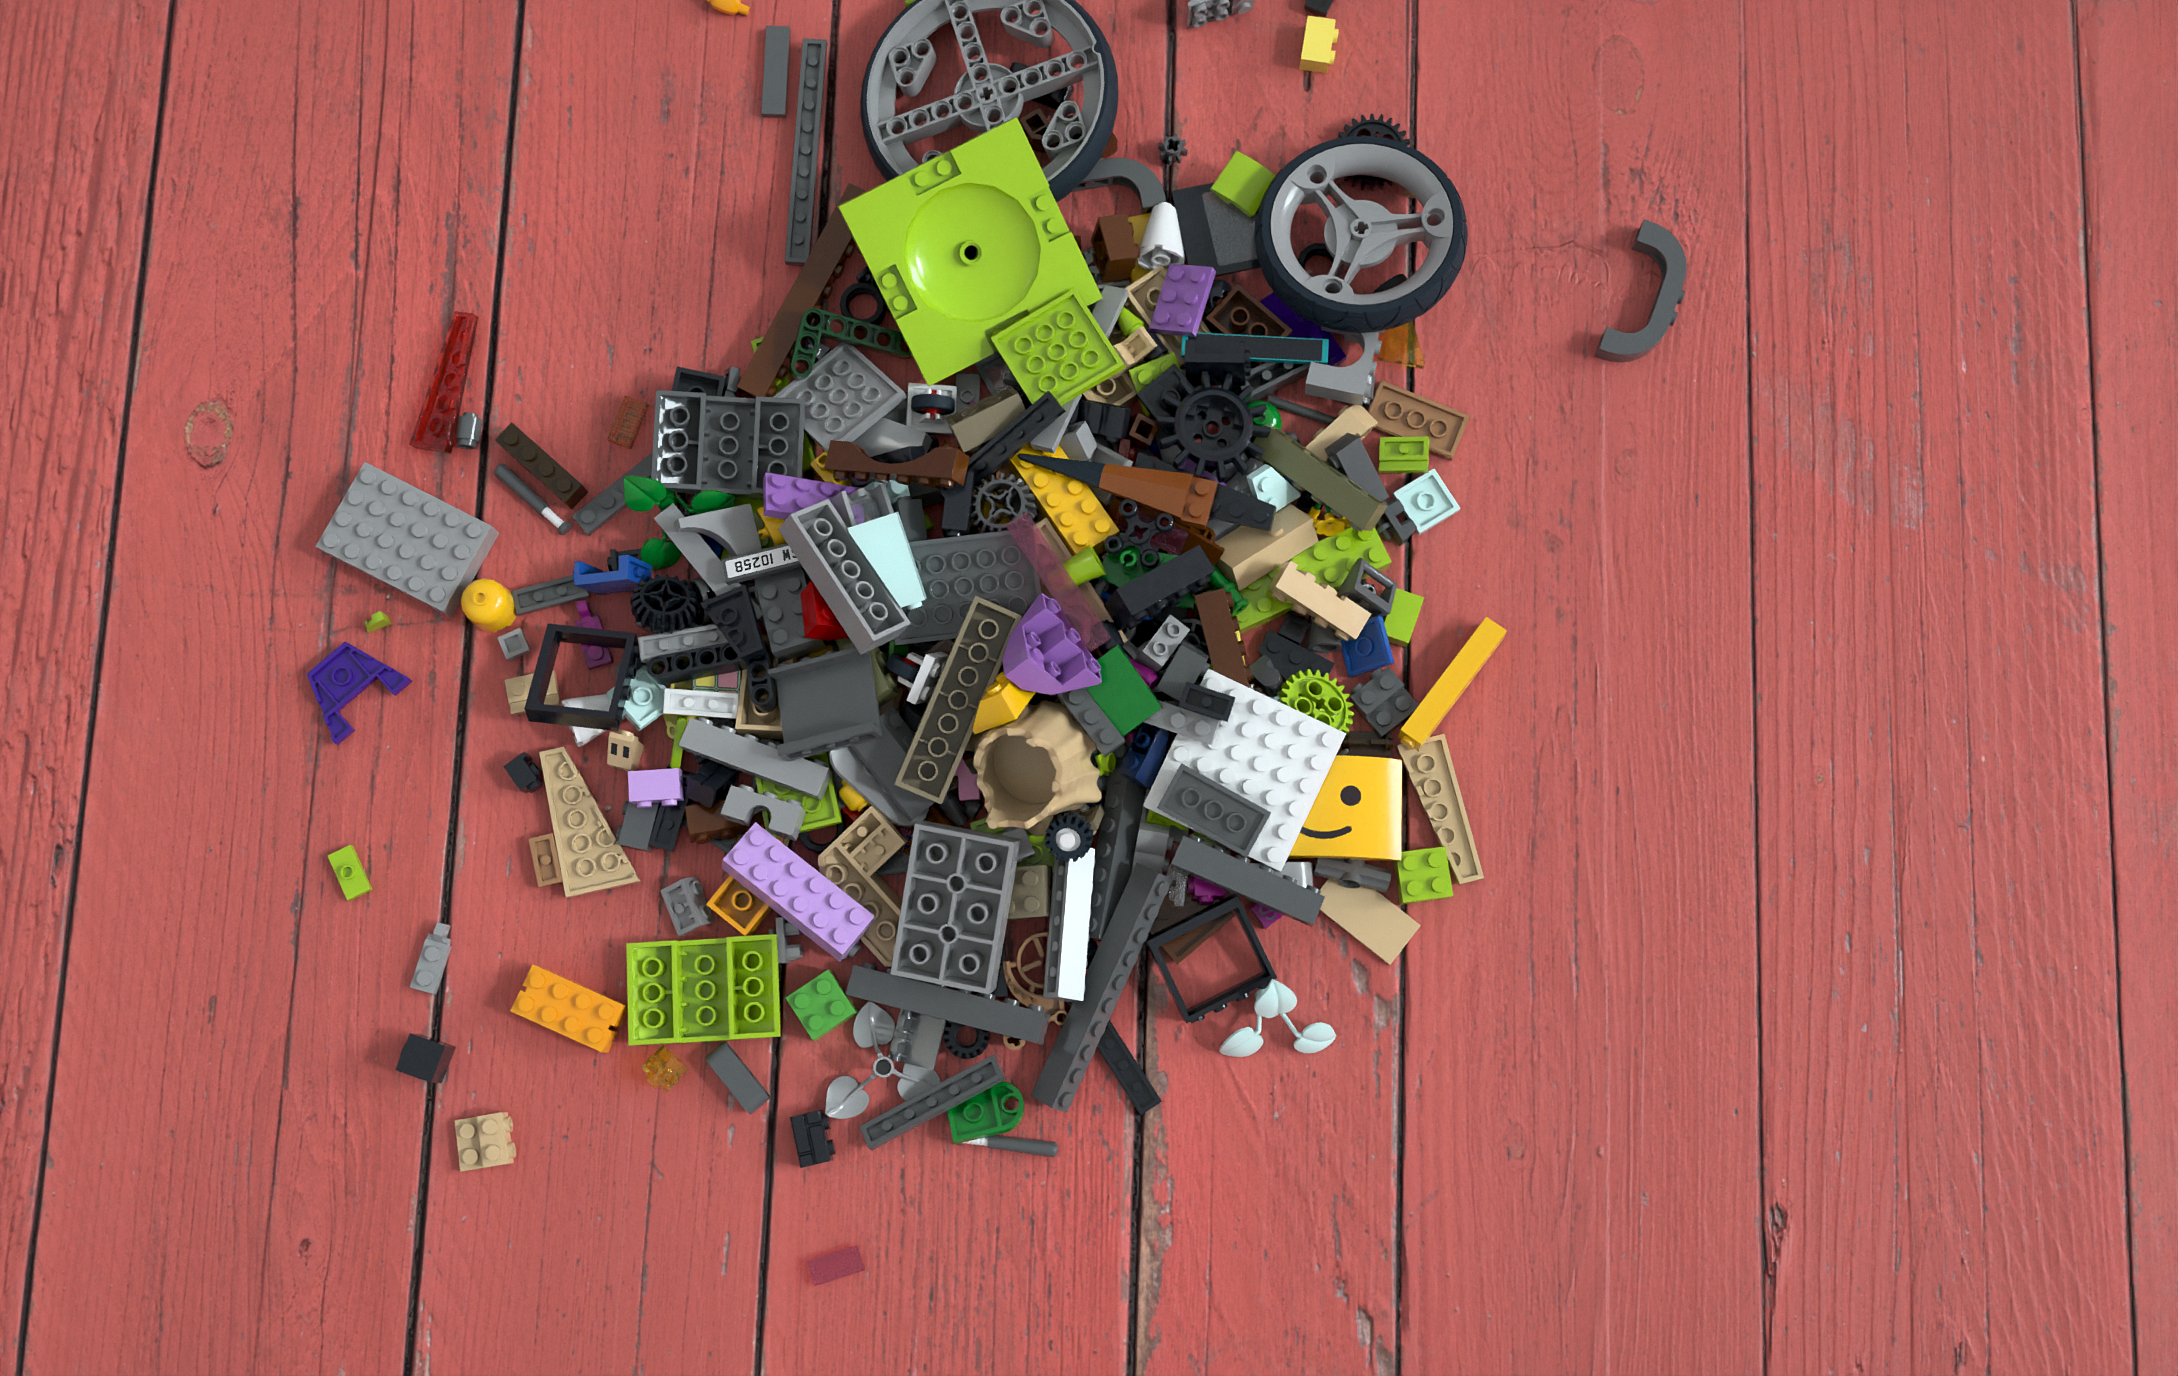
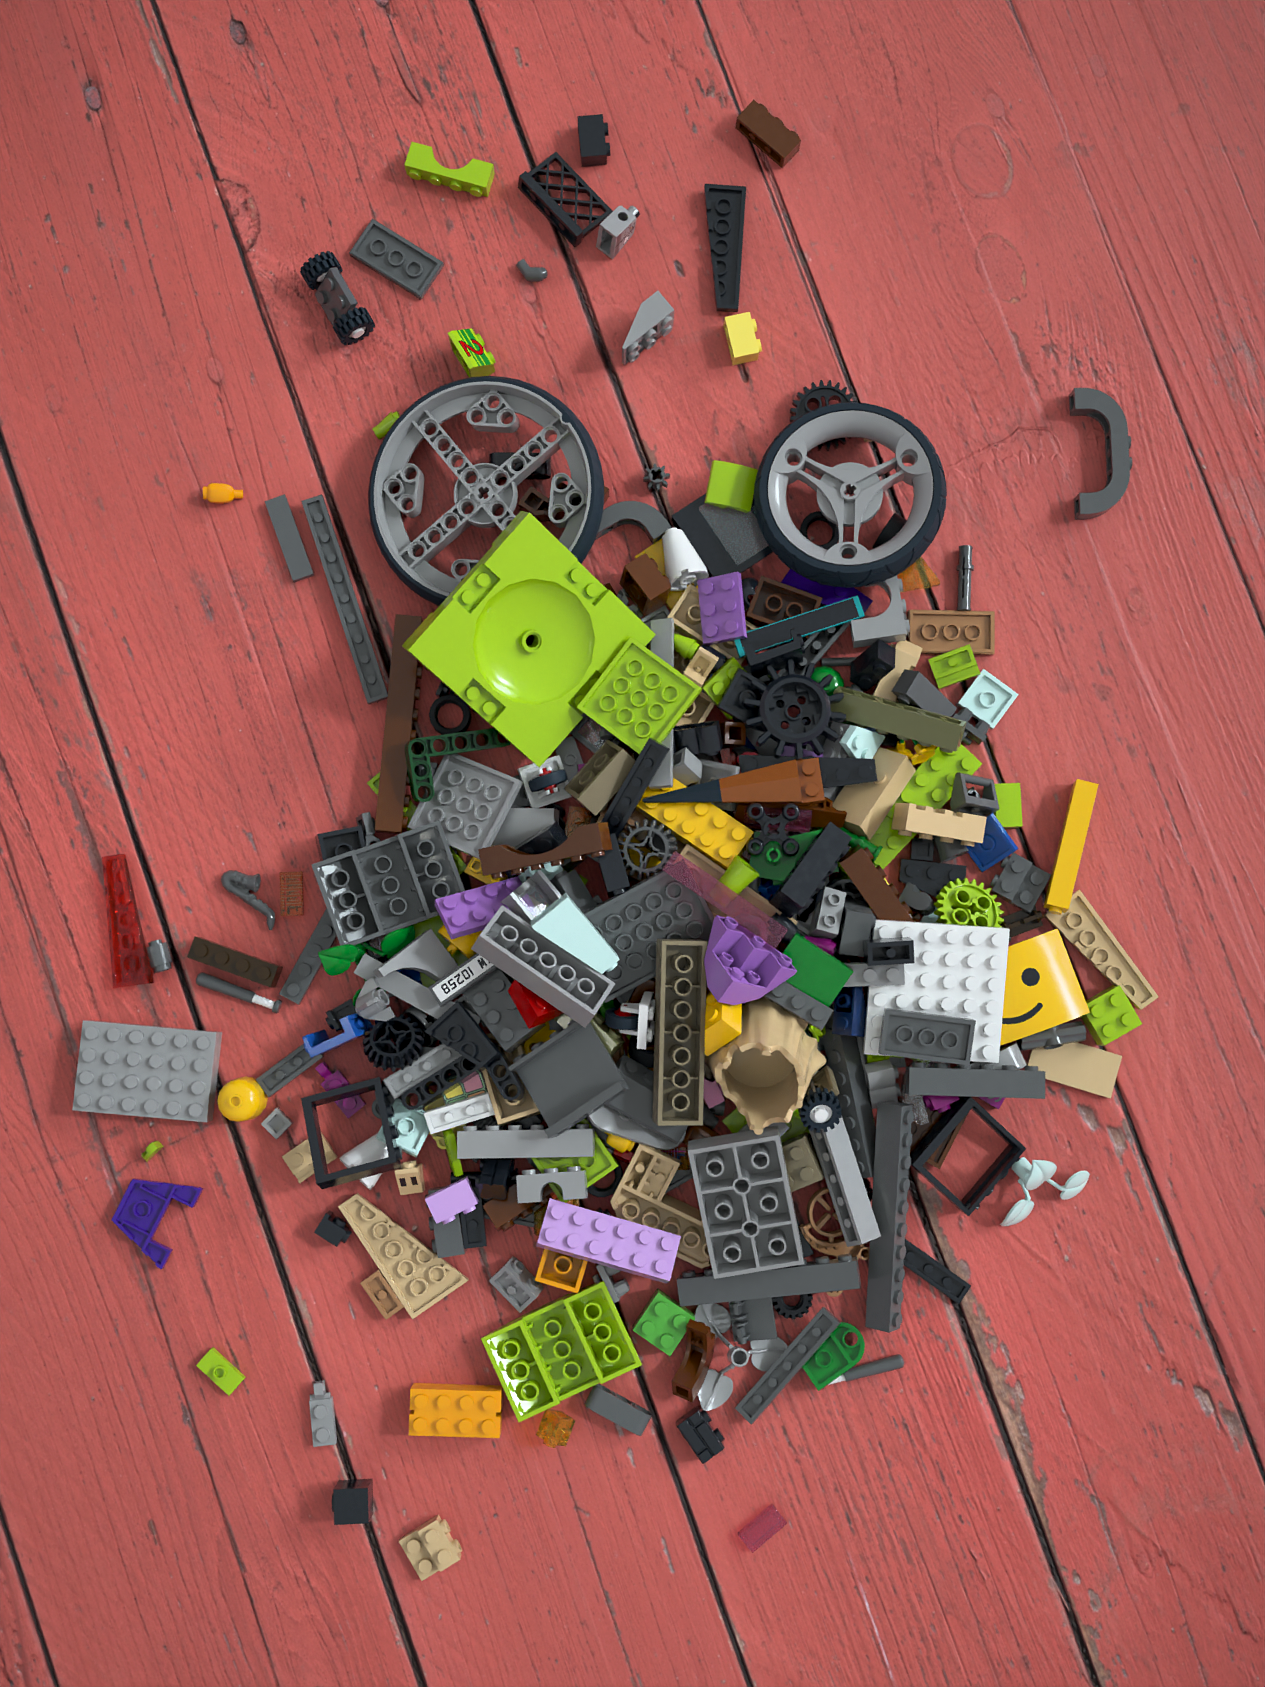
camera: 30 degrees left, 5 degrees up
(579, 393) = (240, 884): none -> dark grey piece
(661, 555) = (372, 1002): none -> light grey brick
(840, 1059) = (696, 1361): none -> reddish brown arch
(1317, 417) = (872, 665): none -> black brick
(1456, 362) = (964, 577): none -> dark grey pin

